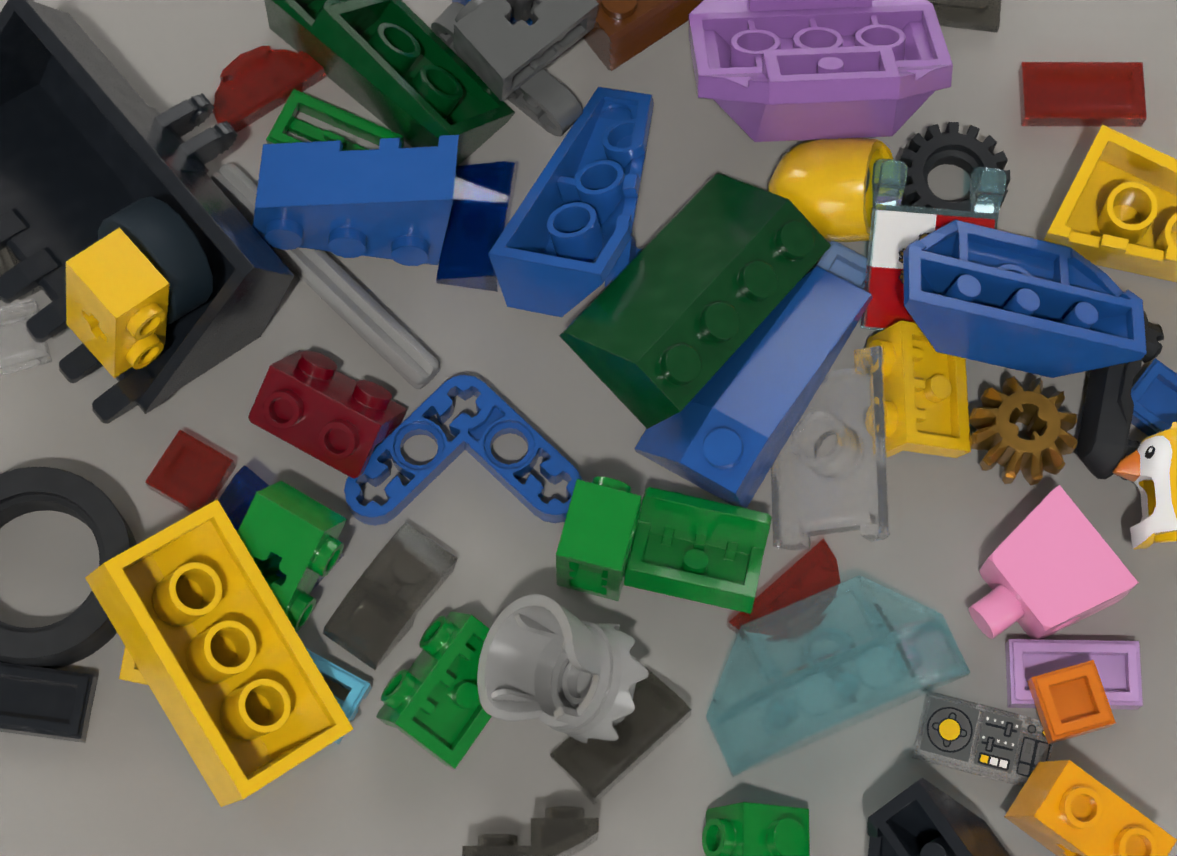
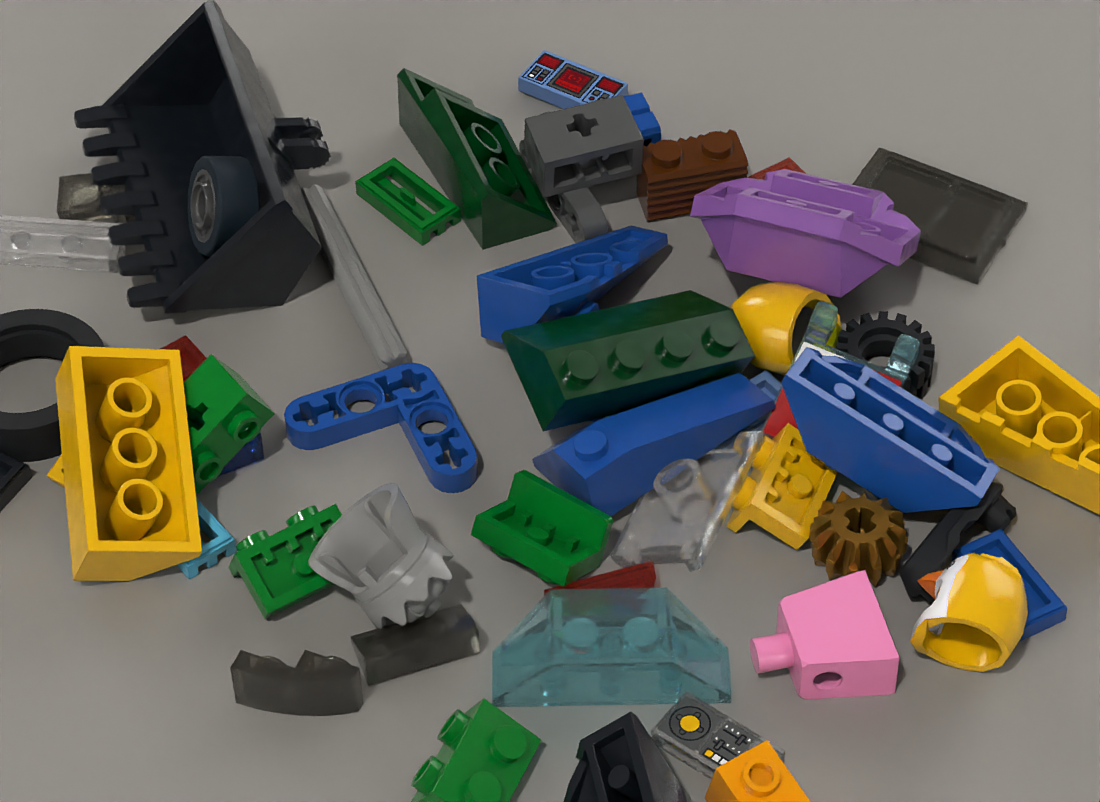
camera: 25 degrees right, 25 degrees down
(117, 303) = (177, 213): yellow brick -> none
(262, 82) = (370, 148): clear red tile -> none
(325, 411) = (296, 349): dark red bracket -> none
(357, 201) = (401, 222): blue wedge -> none
(389, 596) = (275, 488): clear smoke slope -> none
(475, 223) = (462, 299): clear blue slope -> none
(598, 537) = (457, 480): green brick -> none
(1071, 702) = (803, 732): orange tile -> none
(1082, 94) = (1056, 341): clear red tile -> none
(1115, 660) = (820, 727): lavender tile -> none

